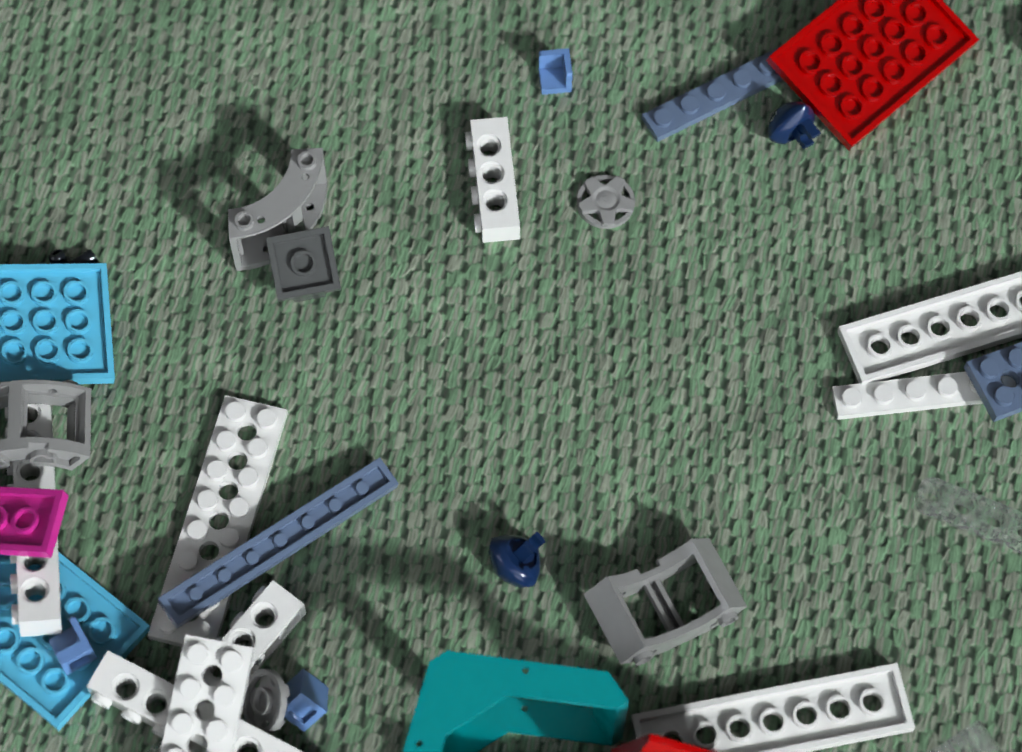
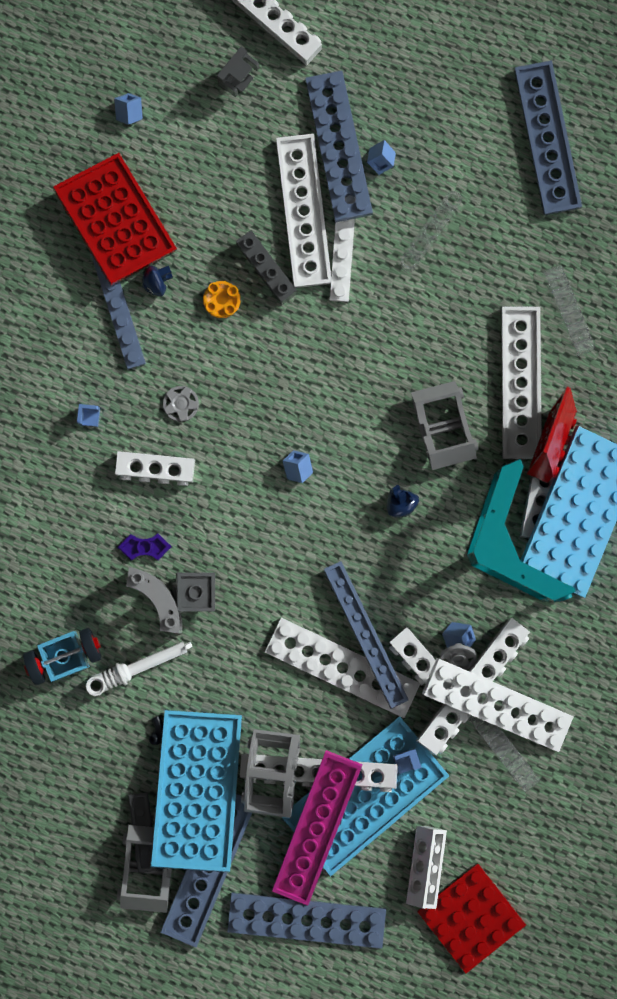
camera: 80 degrees left, 20 degrees up
(156, 193) = (123, 673): none -> white piece
(166, 97) = (62, 656): none -> brick
(367, 203) = (135, 547): none -> dark purple tile
(543, 388) = (297, 466): none -> medium blue panel
(788, 227) = (221, 299): none -> light orange dish
(858, 279) = (266, 267): none -> dark grey brick

